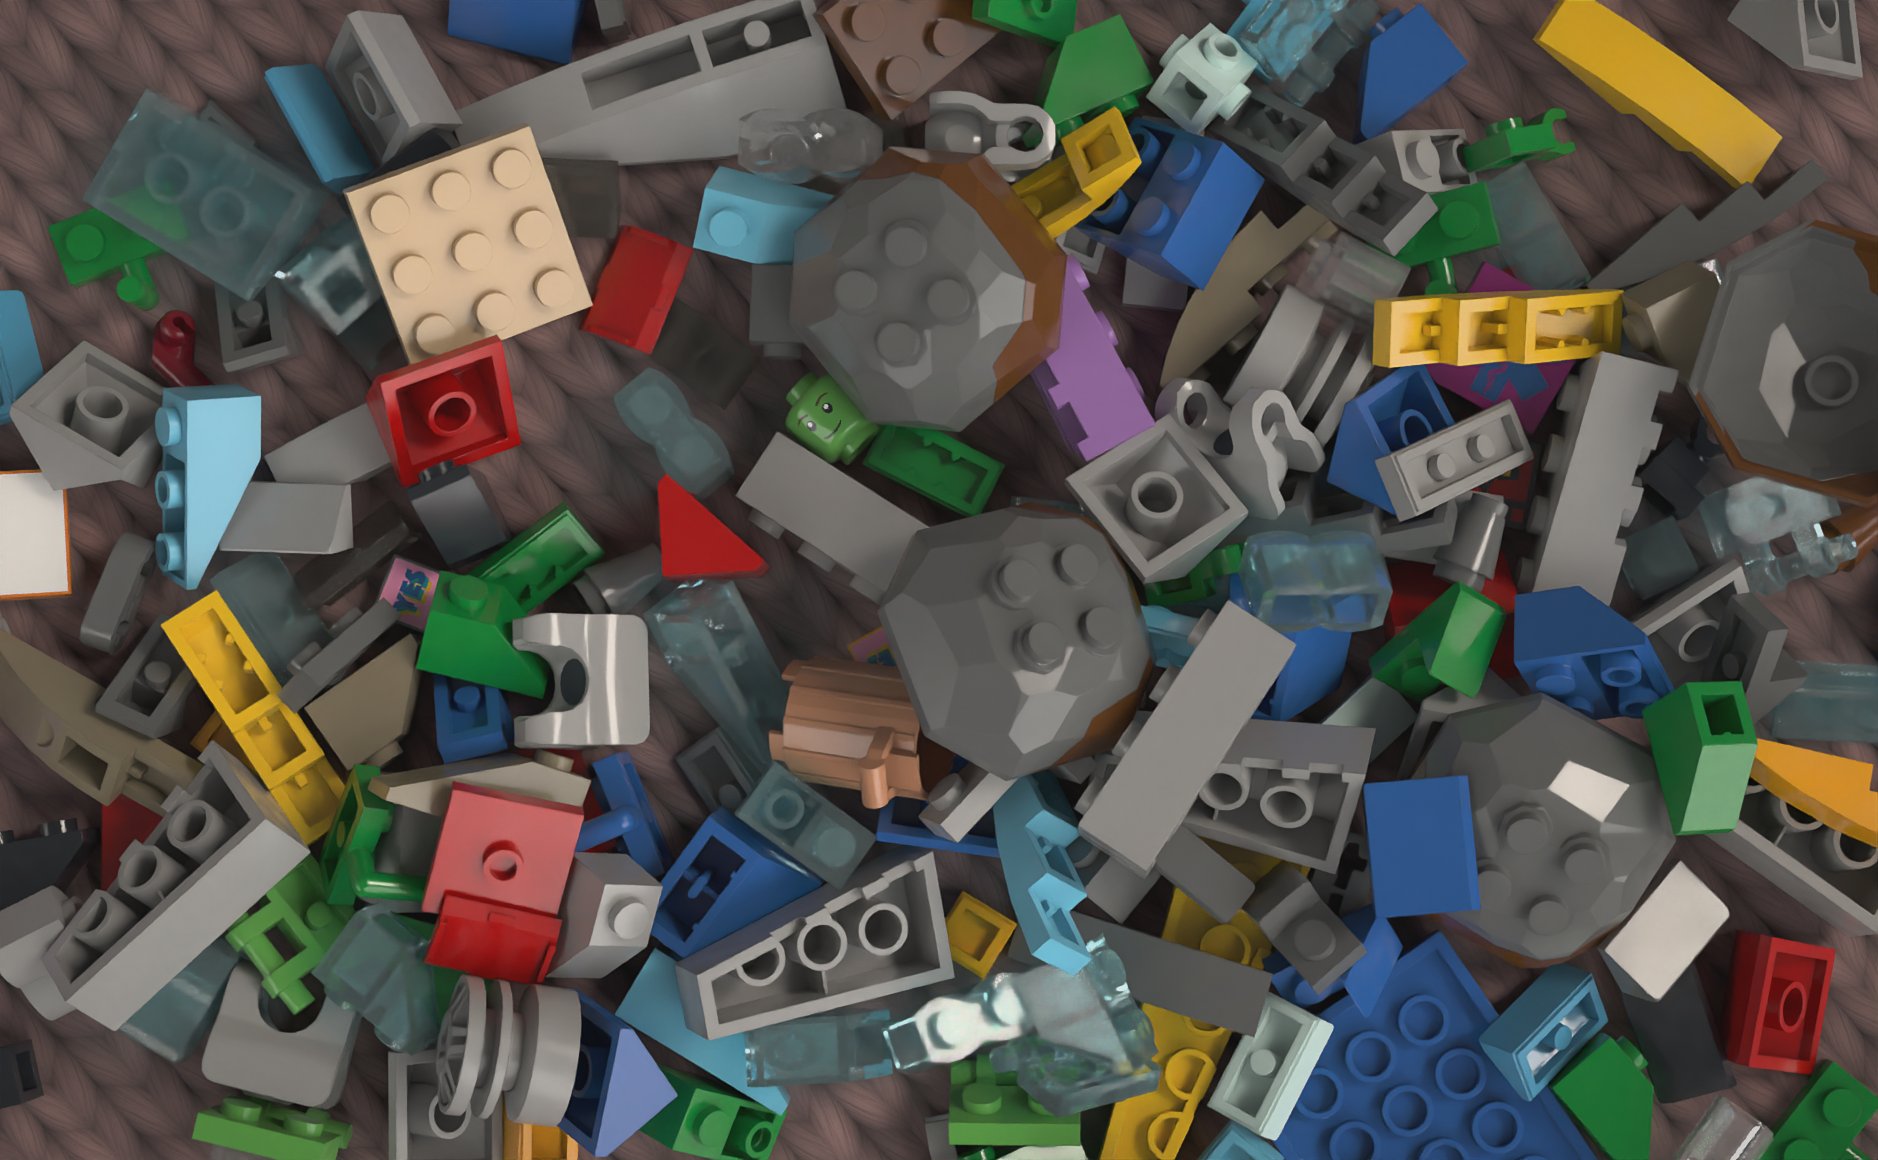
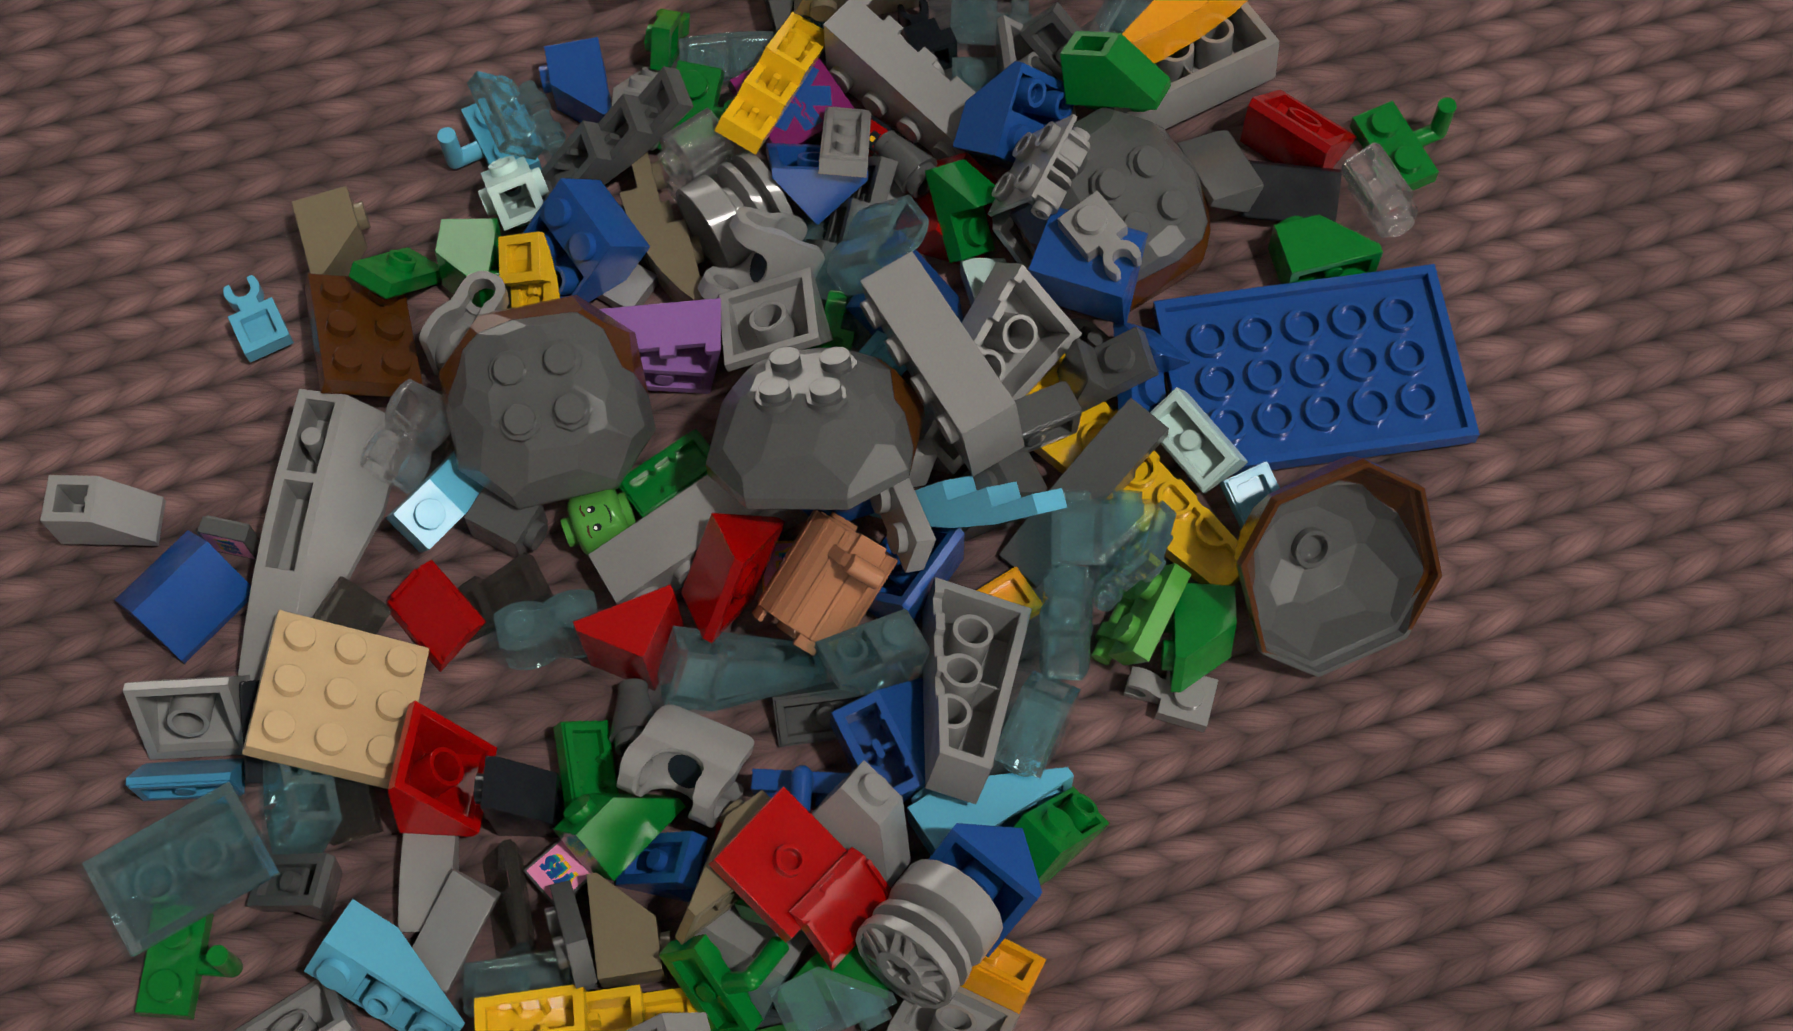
camera: 60 degrees left, 20 degrees down
(175, 349) = (280, 961): dark red arm -> none
(817, 605) = (728, 569): none -> red slope
(1448, 847) = (1098, 230): none -> light grey plate
(1505, 725) = (1042, 169): none -> light grey hinge
(1545, 1028) = (1249, 267): dark azure slope -> none

